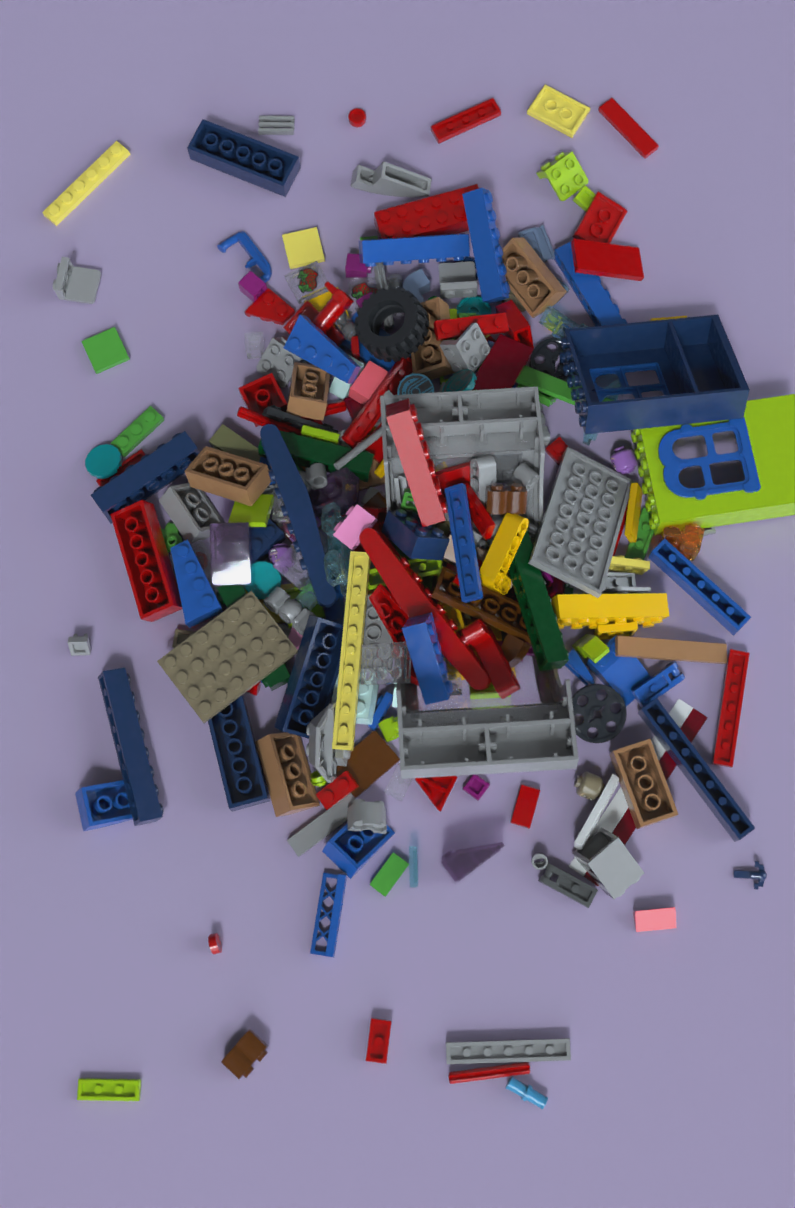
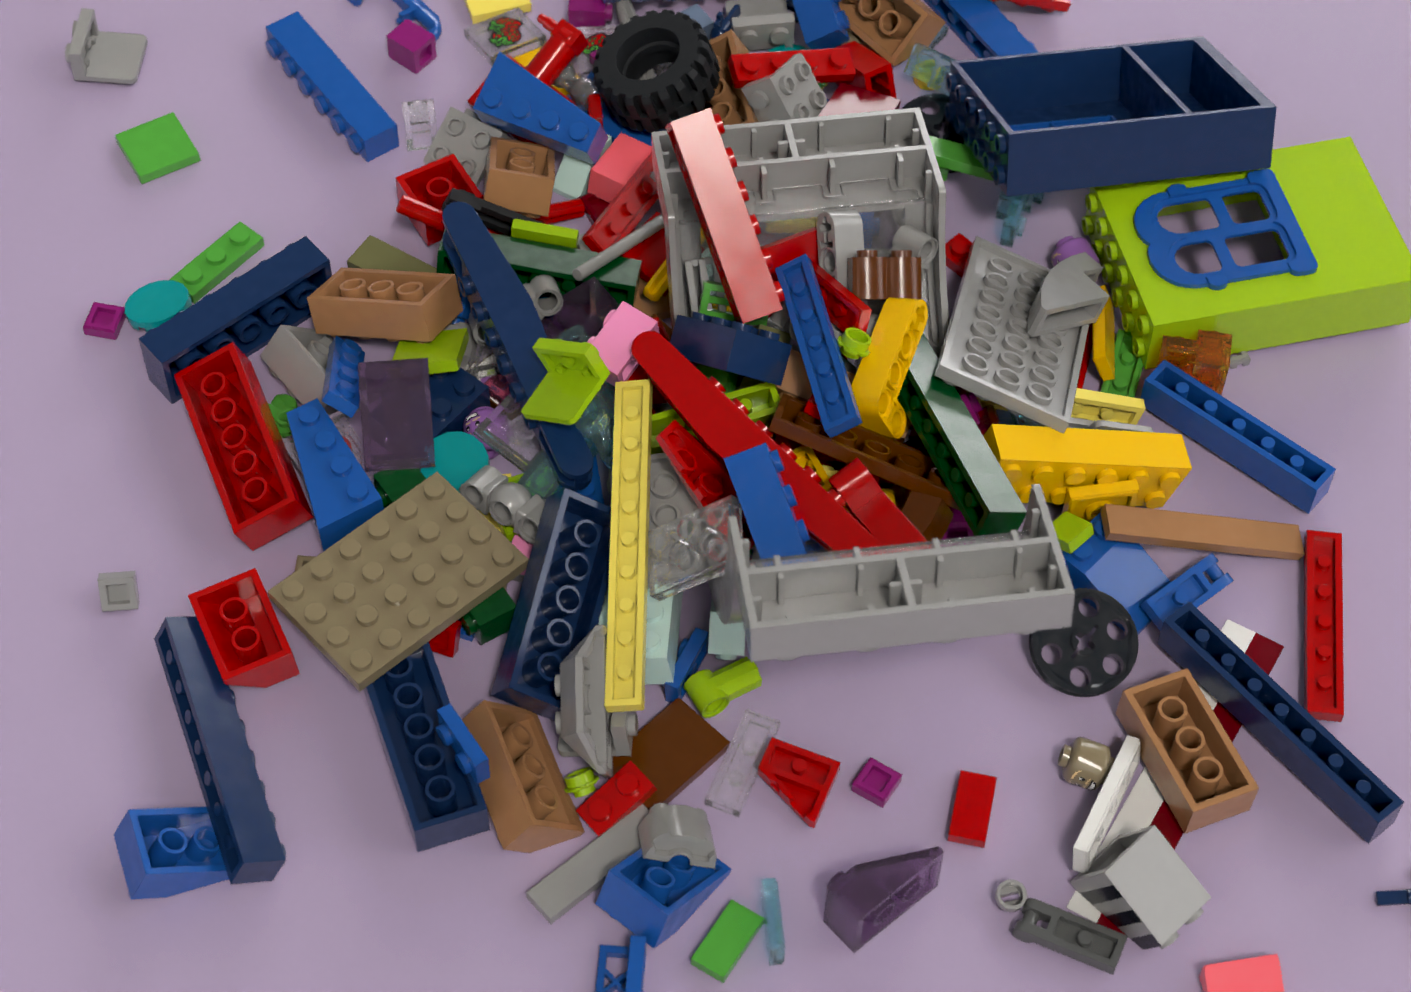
camera: 10 degrees left, 20 degrees down
(74, 467) = (104, 321): none -> magenta tile
(144, 678) = (244, 632): none -> red slope
(203, 517) = (342, 376): none -> blue plate
(205, 313) = (332, 87): none -> blue brick
(251, 756) = (468, 754): none -> blue plate
(270, 308) = (443, 77): red wing -> none
(322, 554) = (571, 381): none -> lime bracket
(435, 284) = (723, 25): none -> dark blue piece
(484, 543) = (854, 343): none -> lime plate
(613, 496) = (1067, 297): none -> light grey slope

